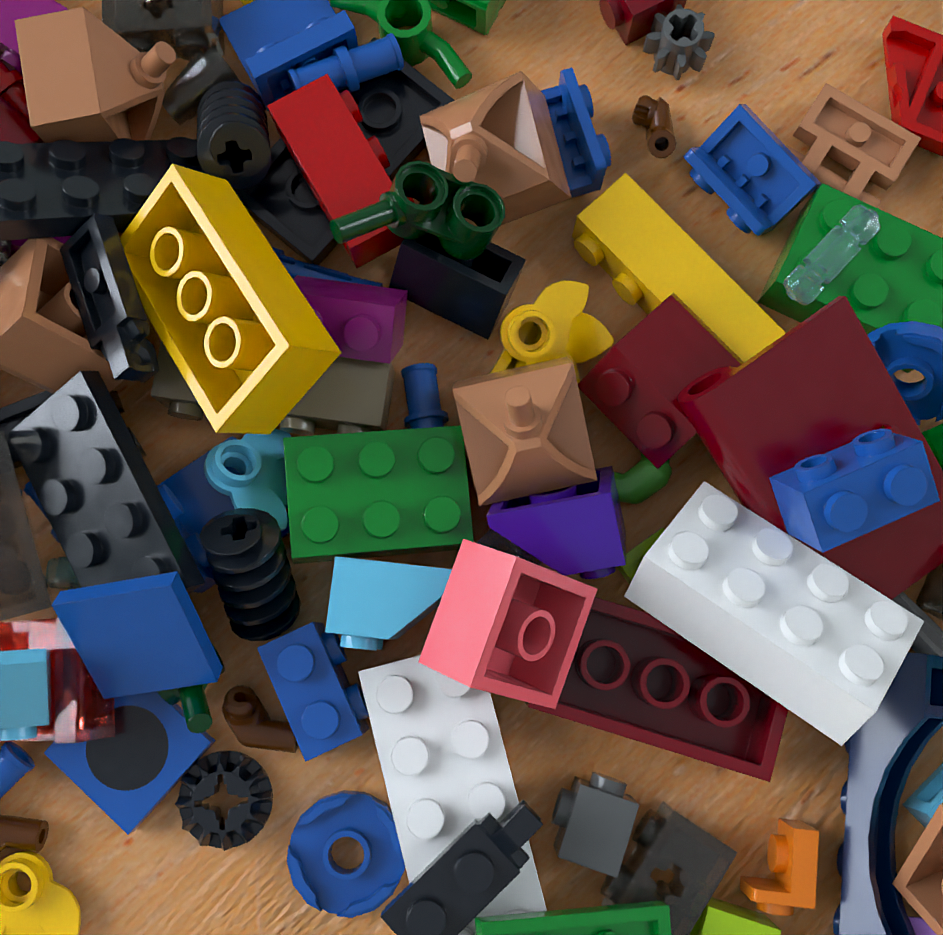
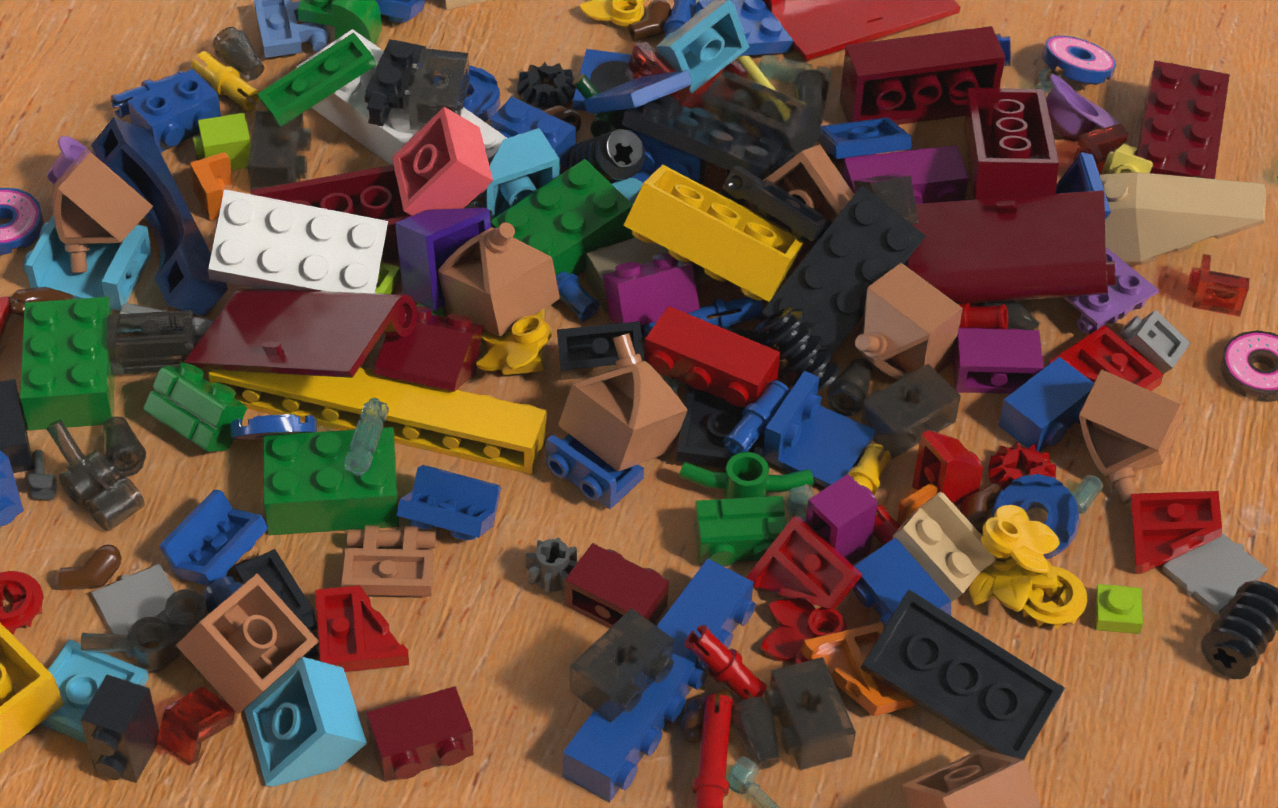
camera: 145 degrees right, 30 degrees down
(392, 831) = (436, 83): none -> clear smoke brick
(442, 211) = (632, 318): dark green beam -> none
(594, 823) = (333, 151): dark grey brick -> none
(657, 119) = (526, 508): reddish brown arm -> none
(854, 488) = (287, 298): blue brick -> none

